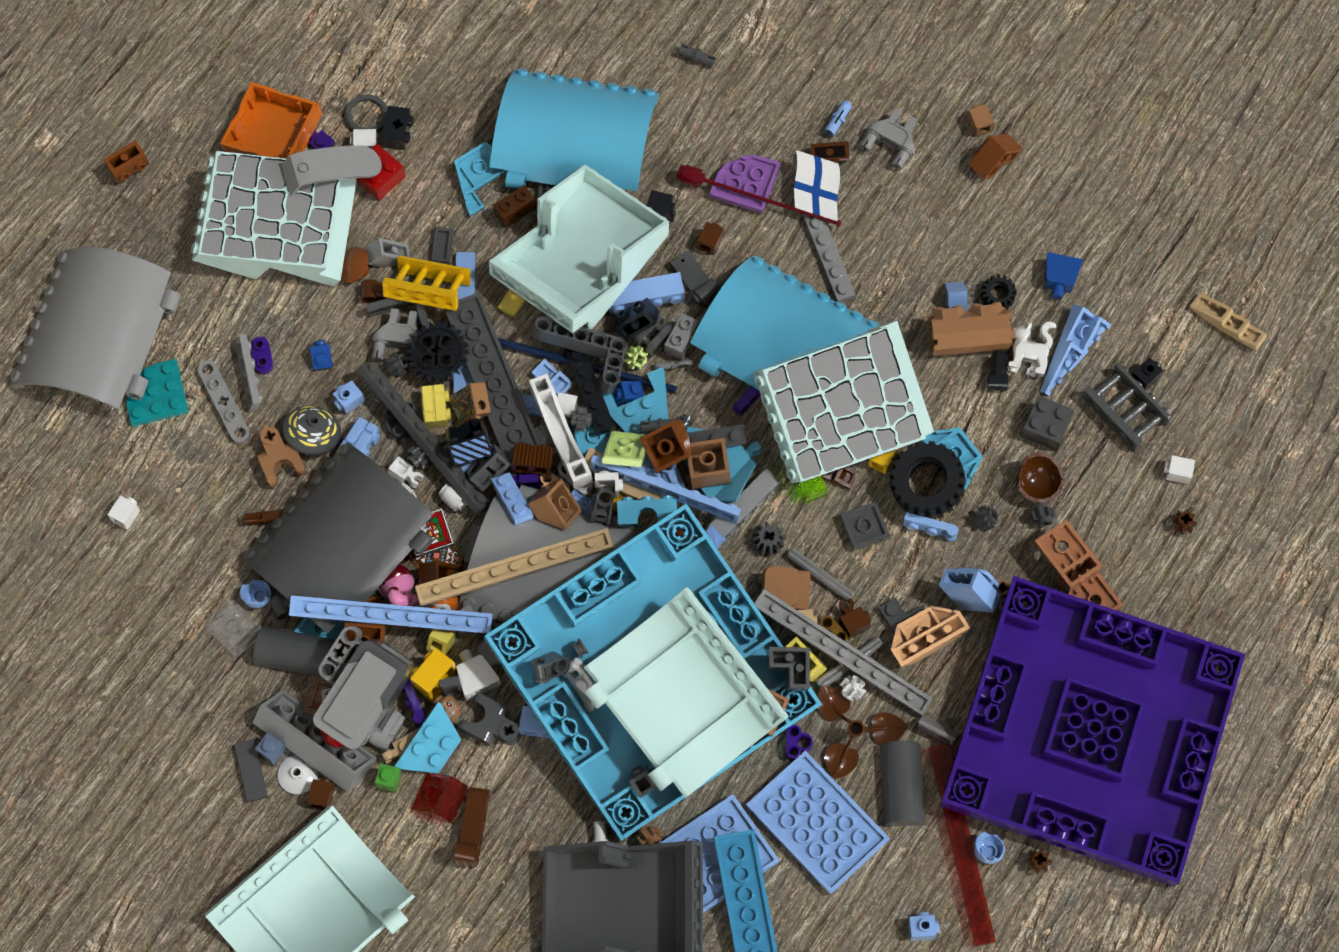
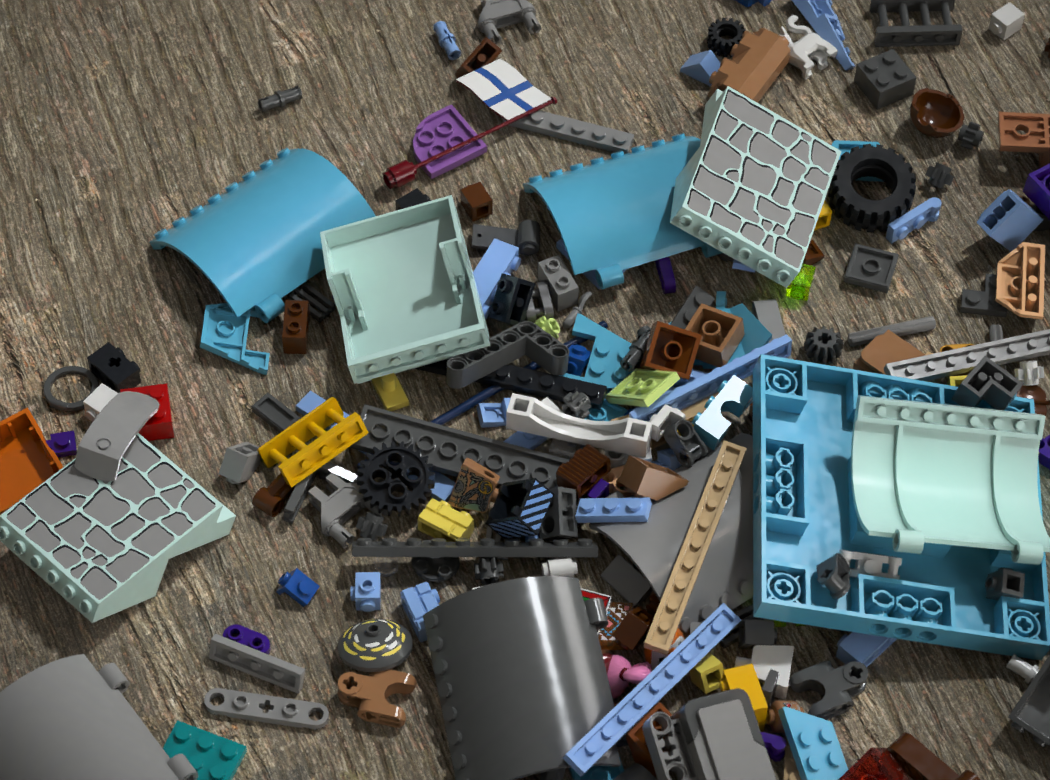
camera: 55 degrees left, 15 degrees down
(261, 517) = (430, 751): reddish brown axle -> none
(355, 265) = (231, 492): dark orange dish -> none
(579, 648) = (832, 540): dark grey bush -> none
(854, 620) = (961, 331): reddish brown brick -> none
(998, 372) = (808, 87): black piece -> none

